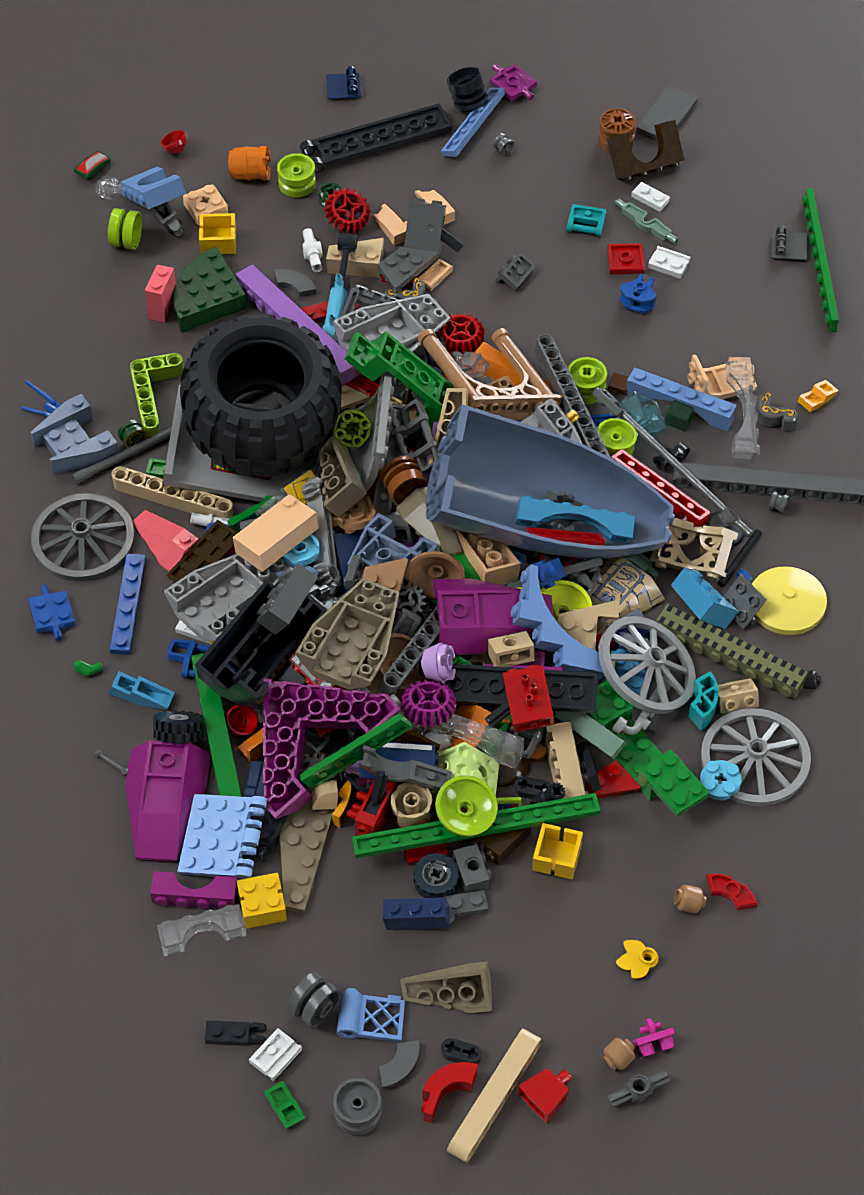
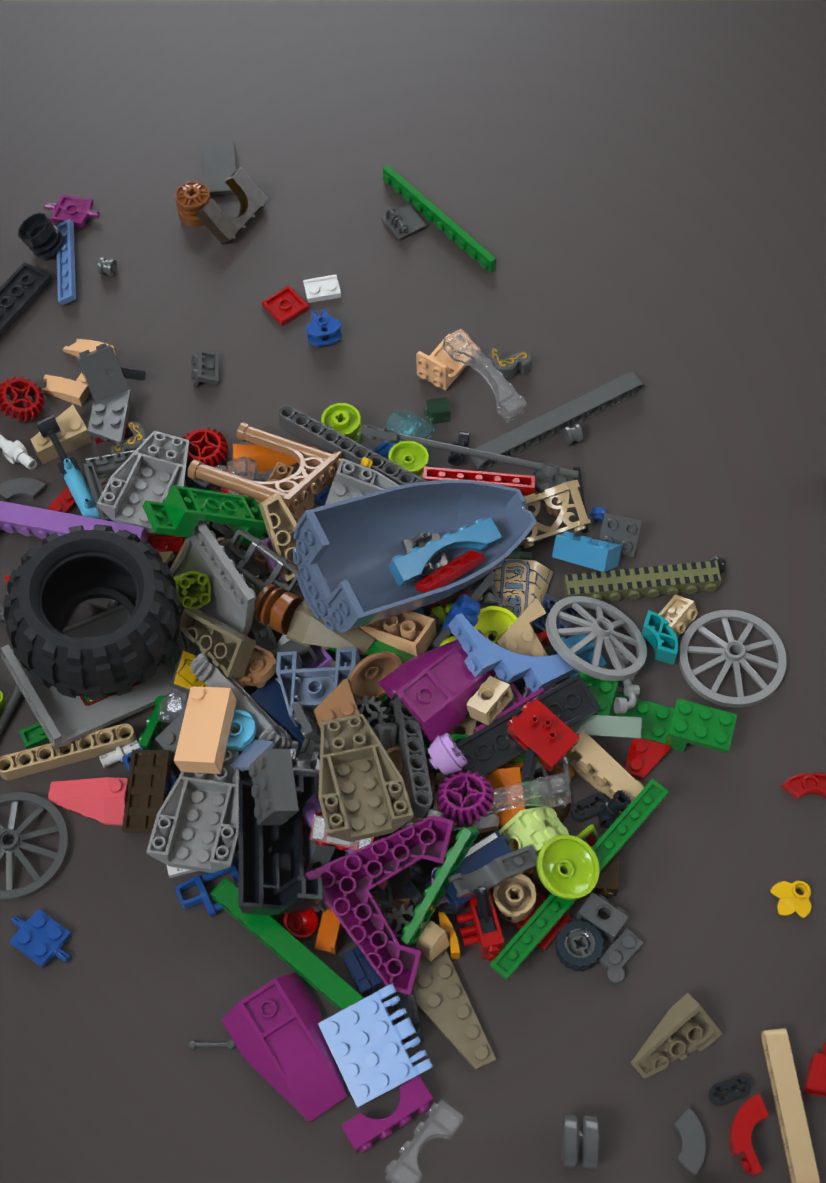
camera: 35 degrees left, 5 degrees up
(85, 669) = (118, 971): green arm -> none
(128, 604) = (106, 882): plate -> none
(141, 691) = (186, 957): dark azure slope -> none
(178, 727) = (252, 969): black wheel -> none
(262, 900) = (455, 1078): yellow piece -> none
(353, 1011) = (615, 1122): medium blue piece -> none
(416, 913) = (594, 992): dark blue brick -> none
(436, 274) = (139, 409): light nougat tile -> none
(555, 854) = (660, 852): yellow piece -> none
(586, 215) = (225, 288): teal plate -> none
(588, 766) = (632, 764): black hinge -> none
(618, 383) = (367, 412): reddish brown tile -> none
(650, 196) = (262, 243): white plate -> none
(653, 226) = (267, 264): sand green piece -> none
(689, 899) = (789, 816): medium nougat head -> none
(712, 409) = (461, 389): medium blue arch -> none
(723, 769) = (731, 686): medium azure plate -> none
(793, 600) = (652, 504): light yellow dish -> none
(820, 394) = (527, 329): light orange slope -> none

